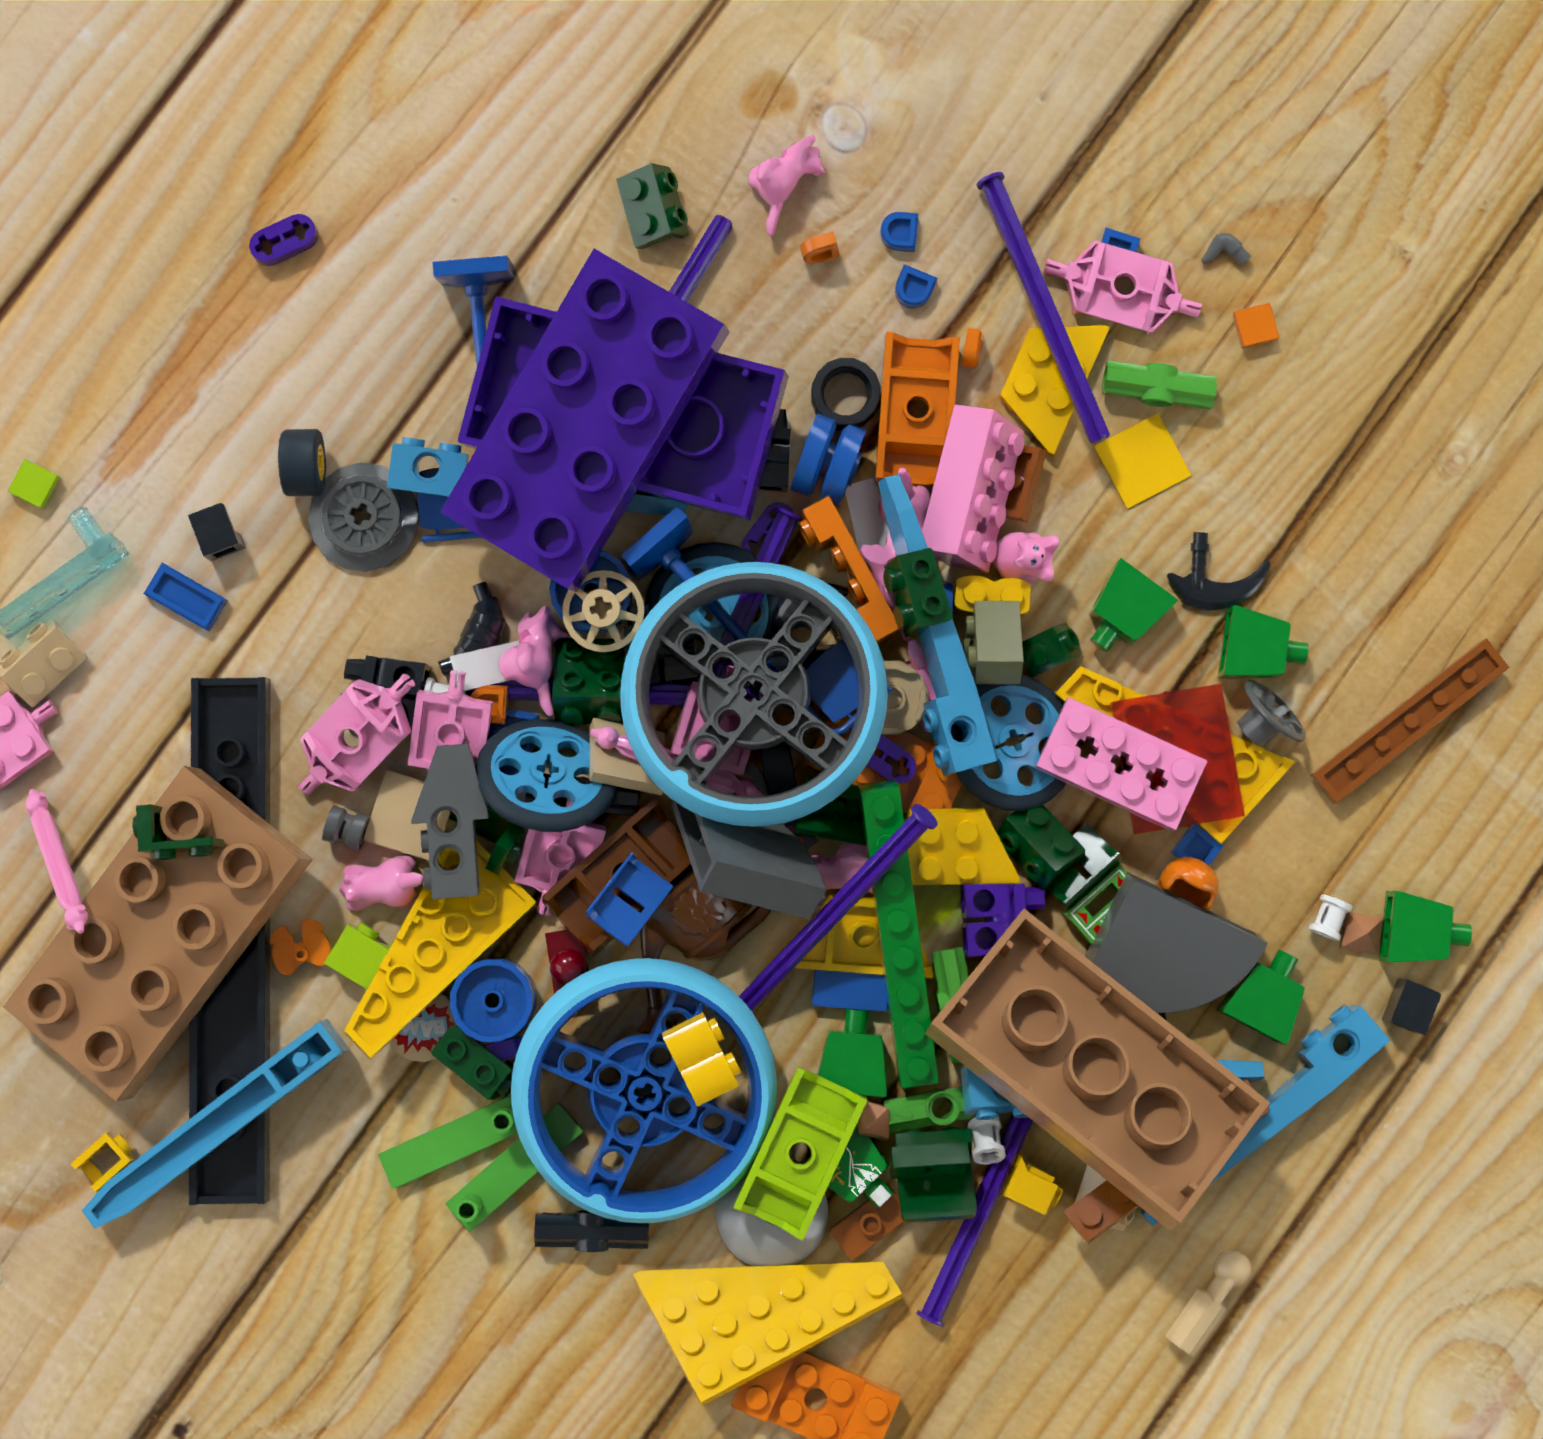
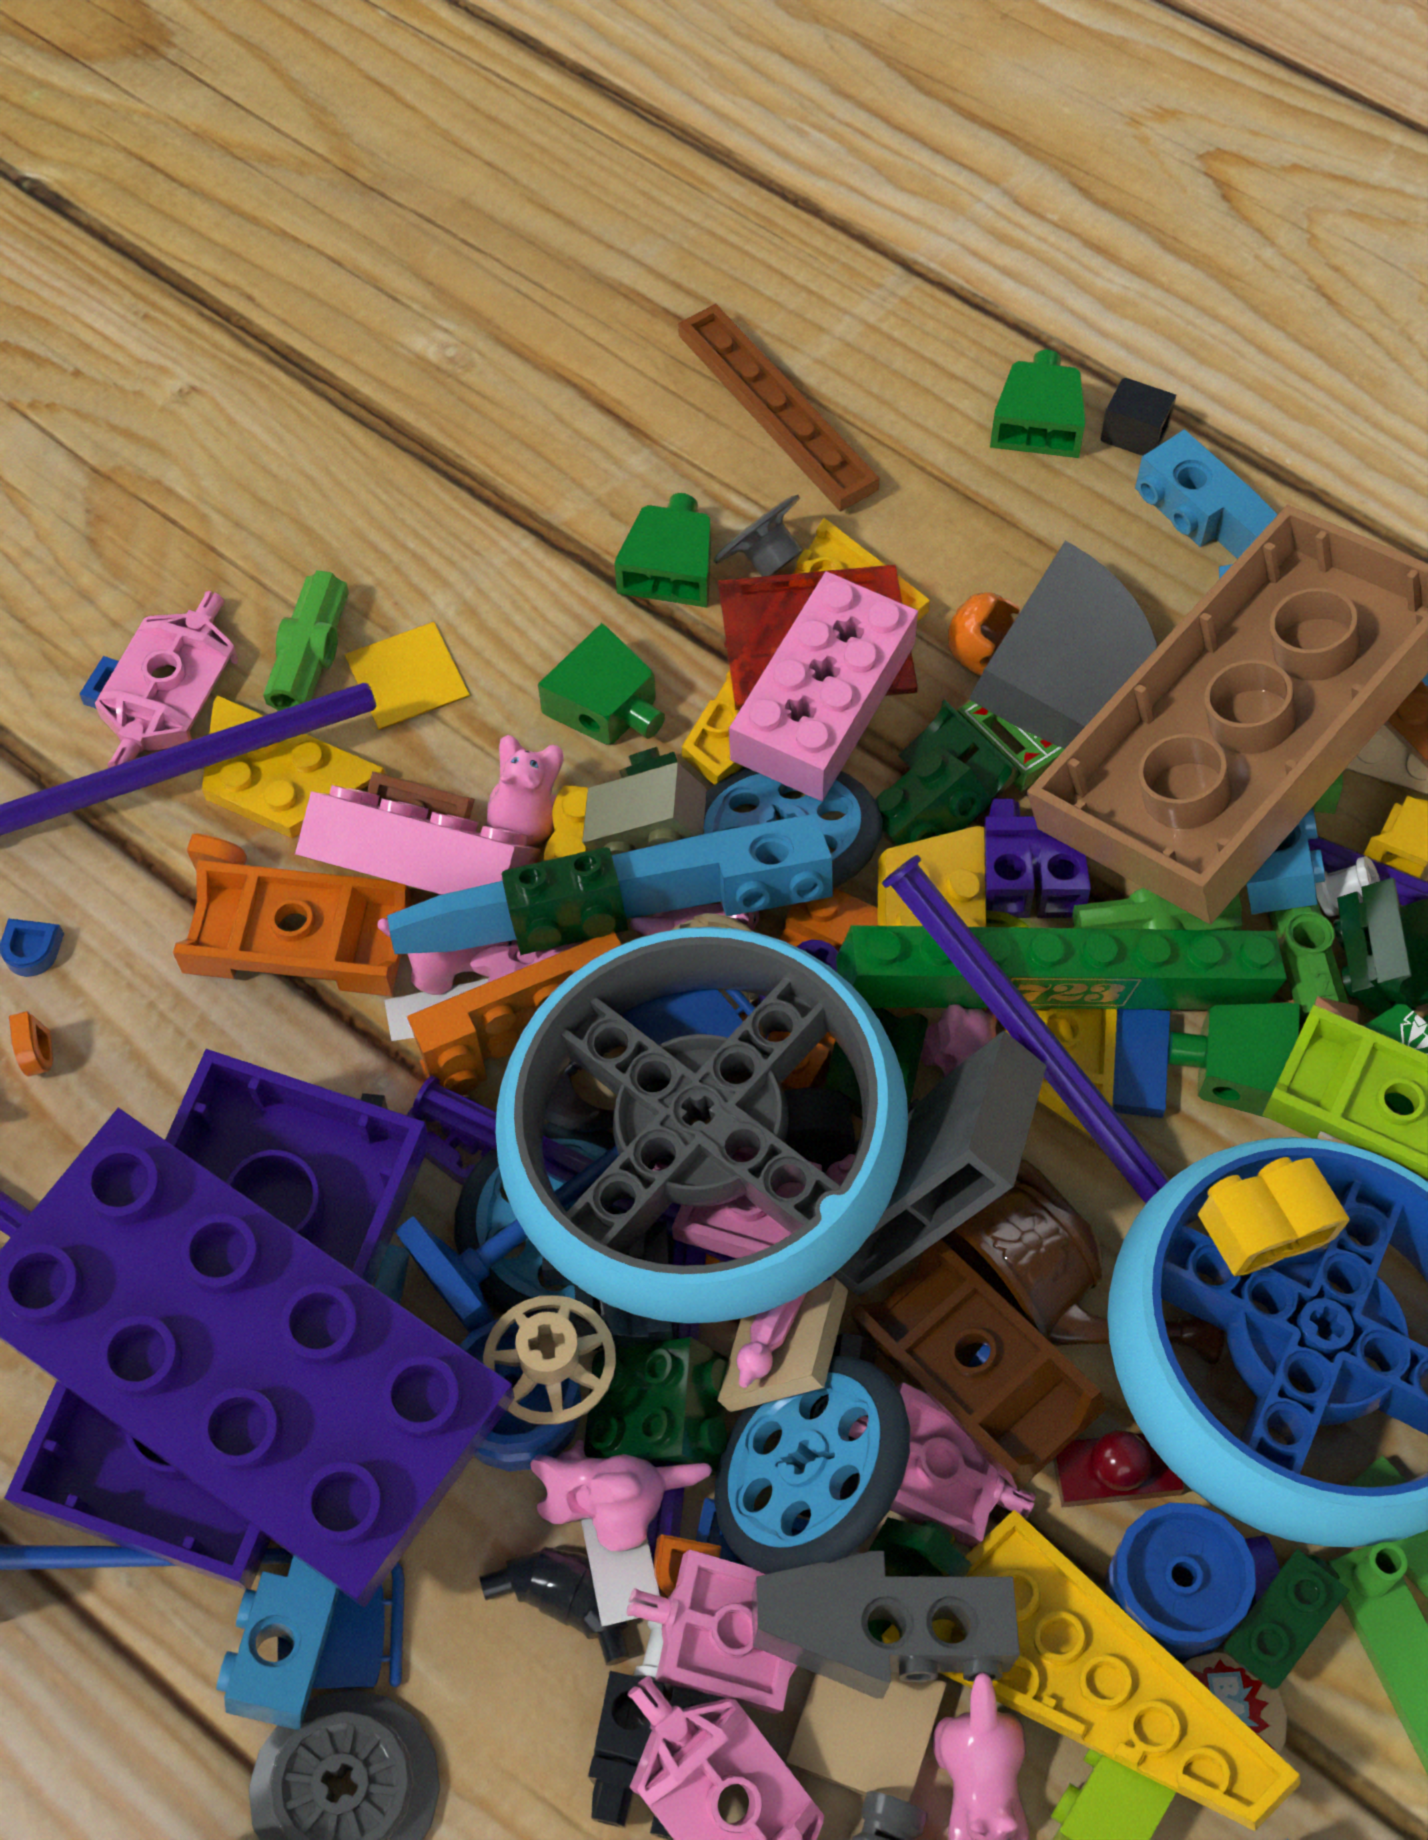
camera: 80 degrees left, 25 degrees down
(641, 886) = (1043, 1351): blue piece -> none
(829, 460) = (350, 1034): blue wheel -> none
(857, 368) = (251, 987): black tyre -> none
(914, 287) = (114, 933): blue tile -> none
(1197, 844) = (932, 636): blue tile -> none
(1208, 594) = (594, 607): black piece -> none
(1229, 244) = (135, 560): dark grey animal -> none
(1255, 325) = (246, 540): orange tile -> none
(1267, 999) = (1142, 556): green torso -> none
(1330, 917) = (1010, 497): white bush -> none
(1361, 933) = (1044, 471): nougat slope -> none

